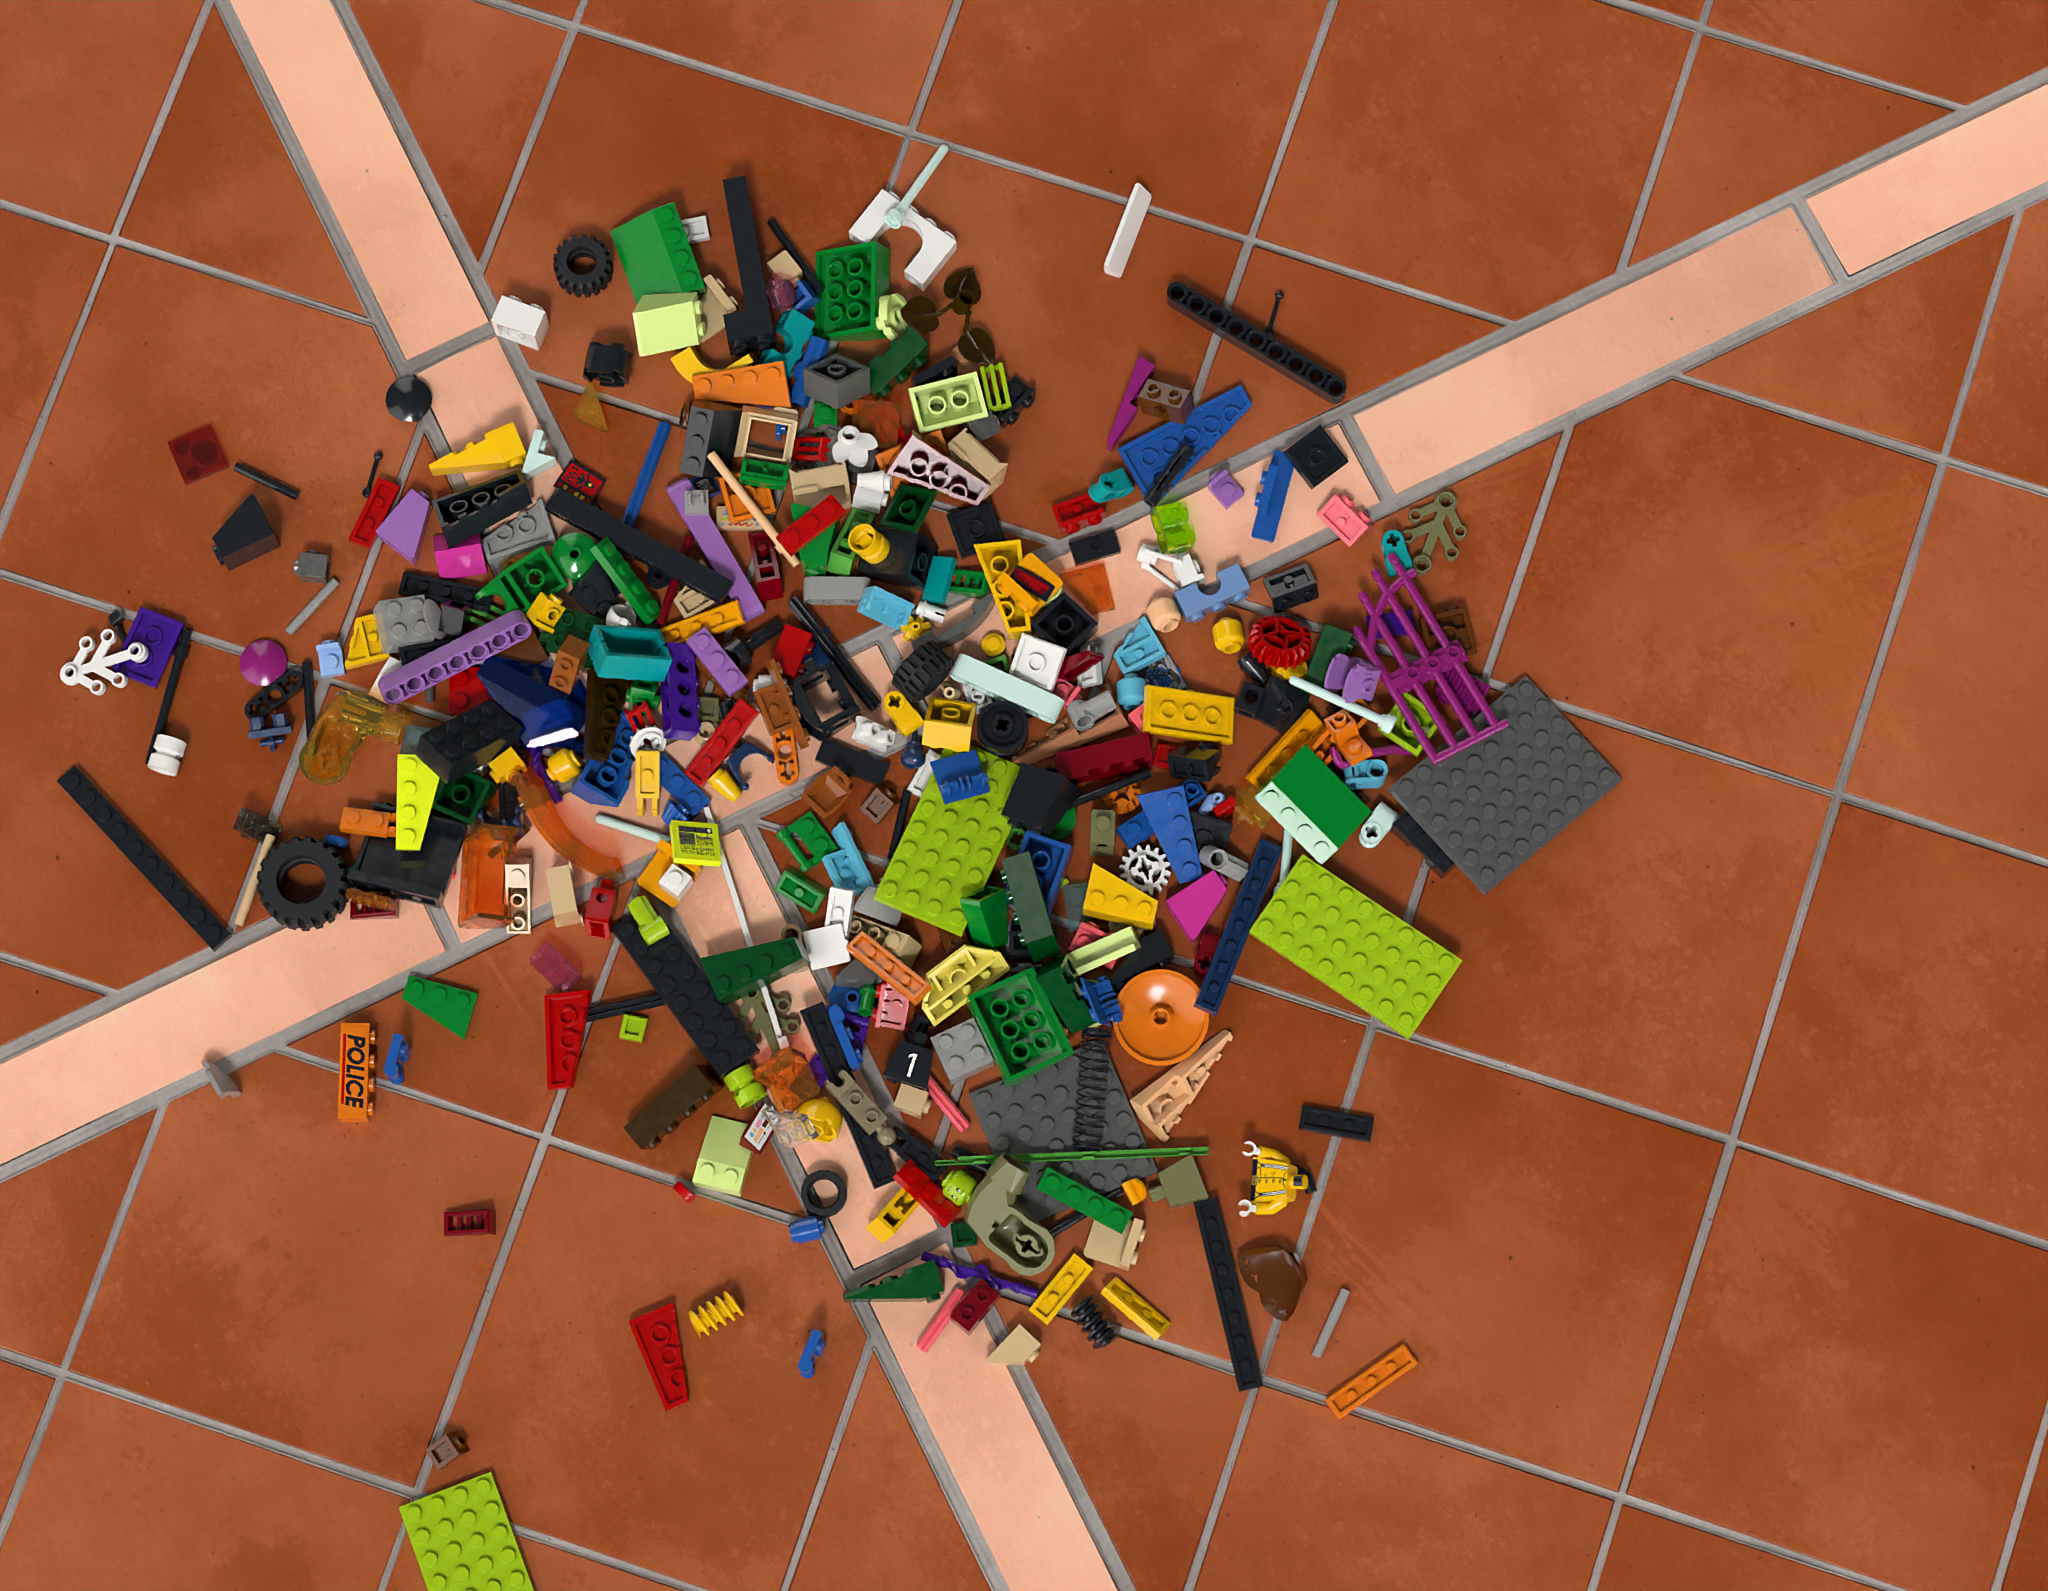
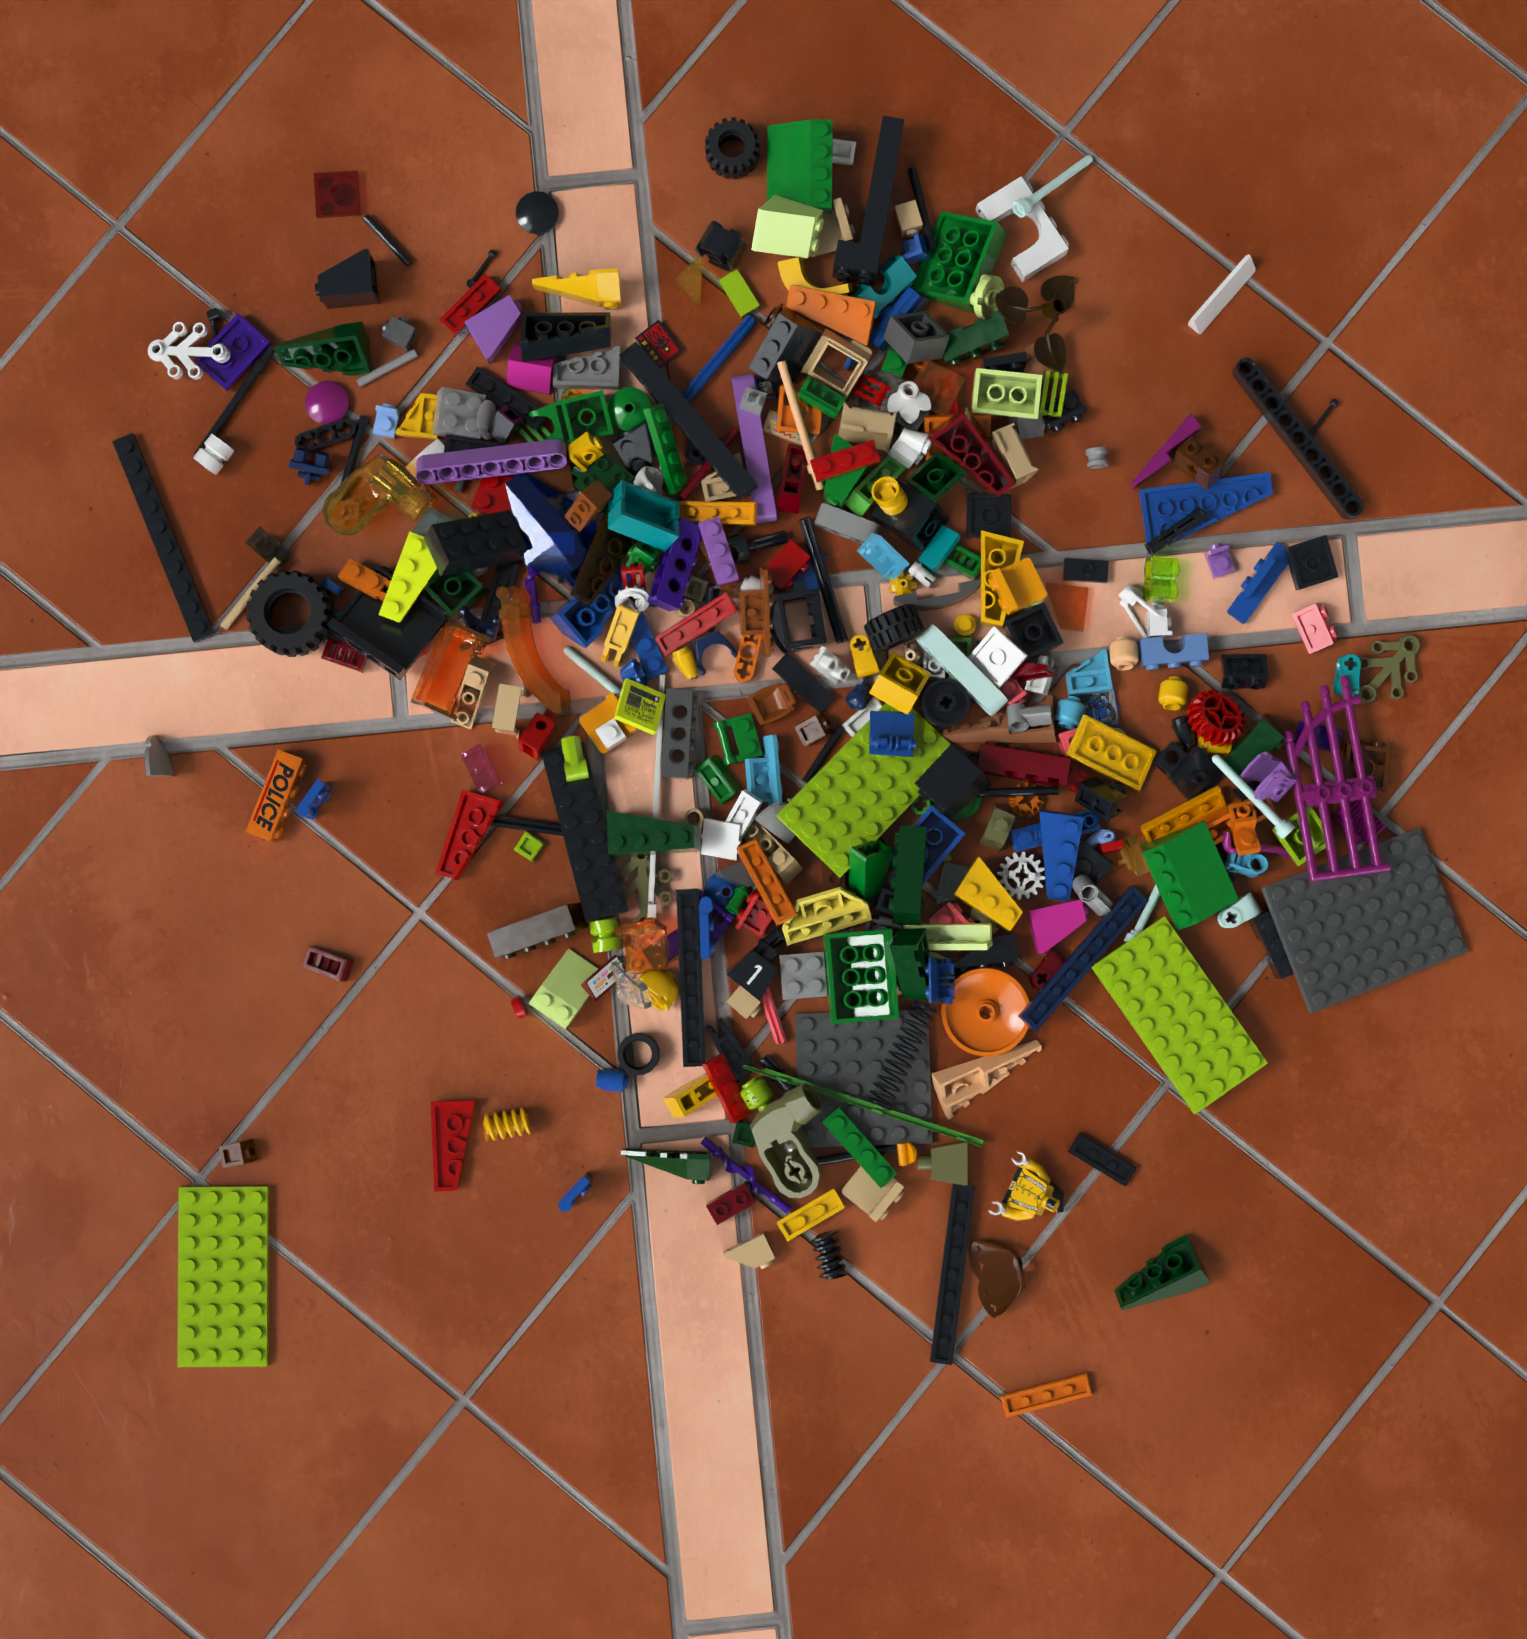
camera: 20 degrees right, 10 degrees up
(252, 607) = (335, 349): none -> dark green wedge
(371, 900) = (342, 650): clear orange tile -> none
(442, 1003) = (373, 763): green wing -> none
(504, 765) = (501, 575): yellow brick -> none
(520, 322) = (658, 179): white brick -> none
(535, 461) = (626, 309): light aqua slope -> none
(564, 765) = (552, 593): yellow head -> none
(642, 404) = (739, 293): none -> lime tile
(739, 822) = (674, 699): none -> dark grey brick
(780, 293) = (896, 239): clear pink head -> none
(861, 1108) = (697, 995): dark tan plate -> none
(941, 1320) = (698, 1201): coral axle -> none
(1032, 583) = (1019, 585): sticker -> none
(1063, 433) = (1097, 457): none -> light grey wheel
(1077, 513) = (1083, 534): red bracket -> none
(1111, 486) = (1121, 521): teal piece -> none
(1135, 1308) = (868, 1256): yellow plate -> none
(1330, 1323) = (1031, 1330): light grey bar -> none
(1450, 1210) = (1168, 1275): none -> dark green wedge

